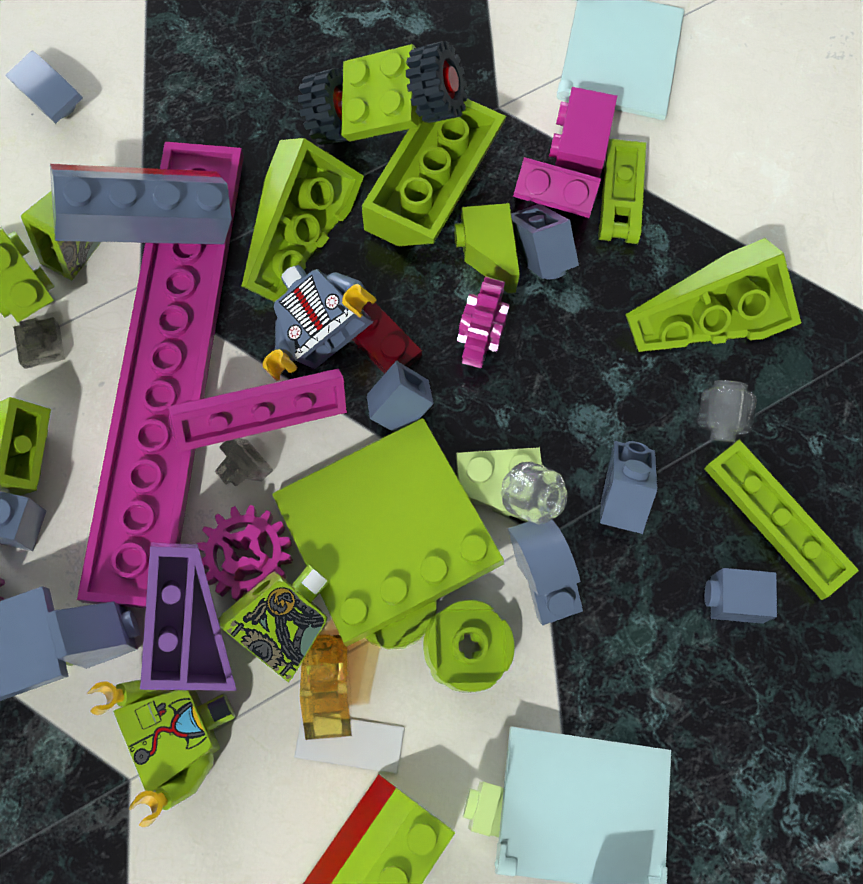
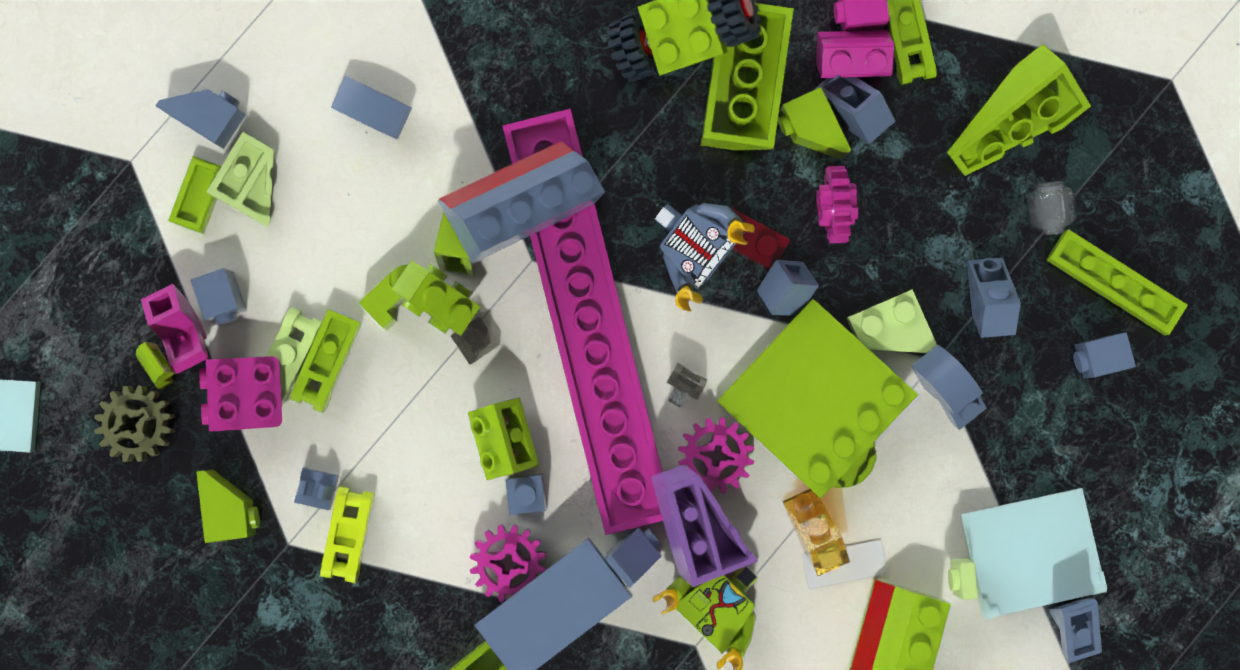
camera: 20 degrees left, 15 degrees up
(257, 410) = (685, 342): dark pink fence -> none
(278, 620) = (766, 498): torso -> none
(297, 210) = (639, 145): lime wedge -> none
(450, 665) = (892, 460): lime plate -> none
(534, 492) = (925, 335): clear head -> none

